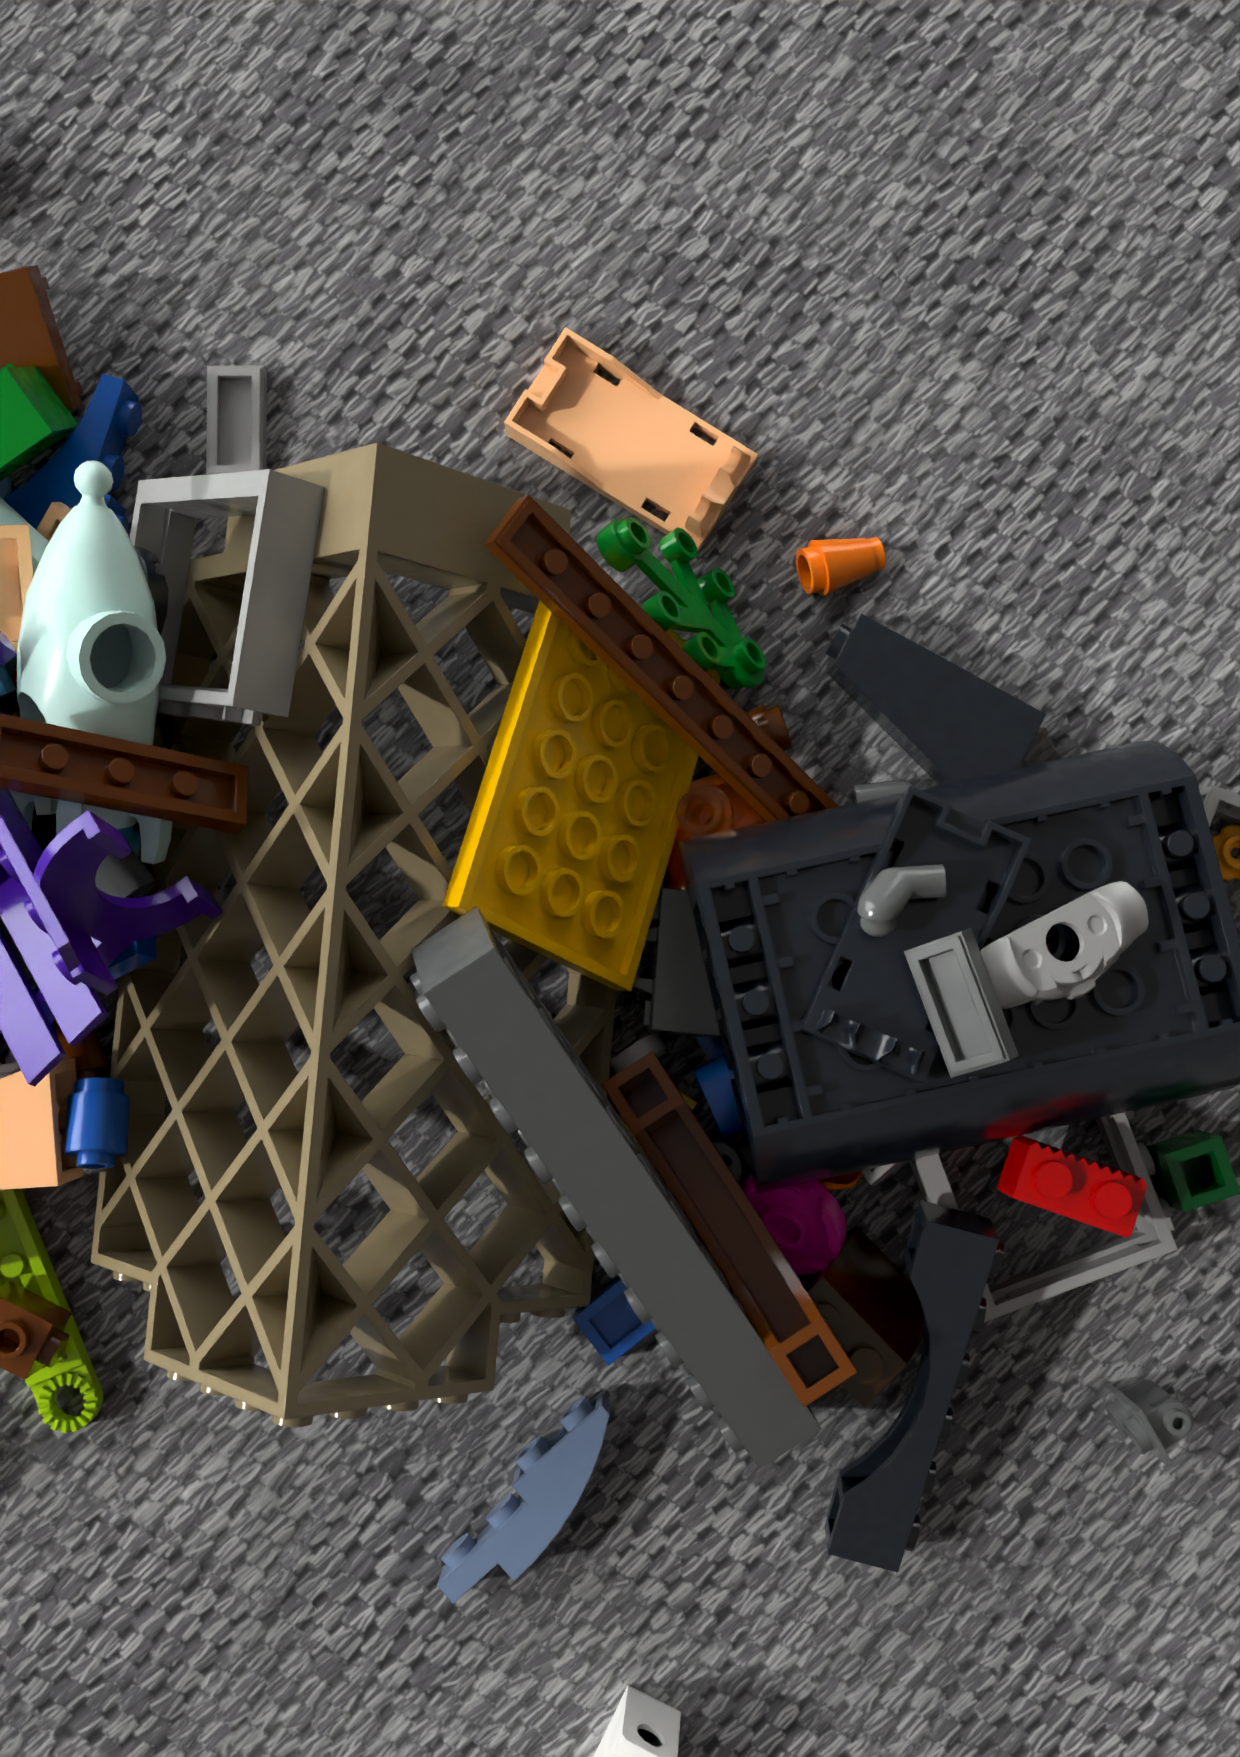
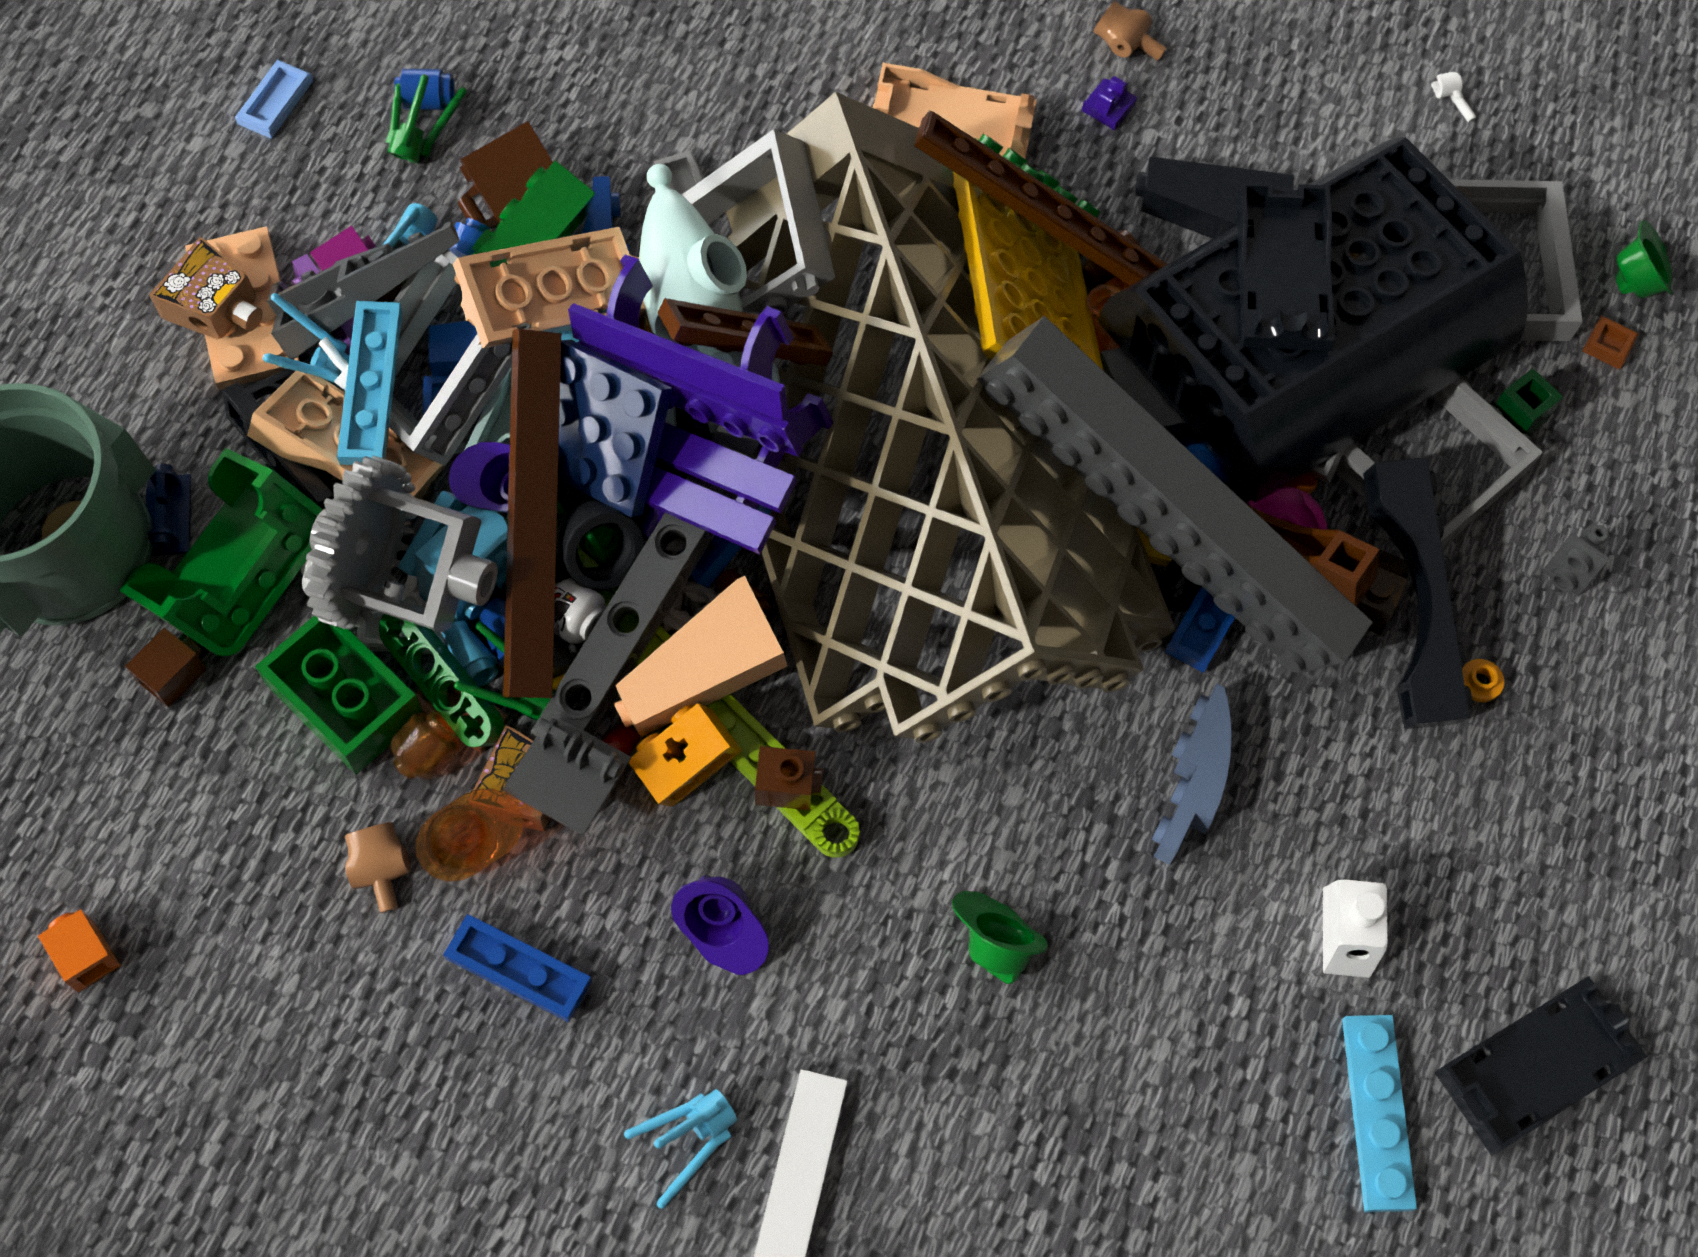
camera: 25 degrees left, 20 degrees down
(97, 1122) = (788, 614): blue brick -> none
(204, 1604) = (997, 935): none -> green piece
(837, 563) = (1115, 143): orange cone -> none
(856, 494) = (1110, 102): none -> dark purple tile
(892, 891) = (1263, 236): dark grey arm -> none
(929, 388) = (1127, 30): none -> medium nougat piece
(946, 1489) = (1479, 691): none -> light orange plate
(961, 1003) = (1335, 281): tile -> none
(1072, 1186) = (1455, 426): red brick -> none
(1106, 926) = (1359, 257): light grey piece -> none

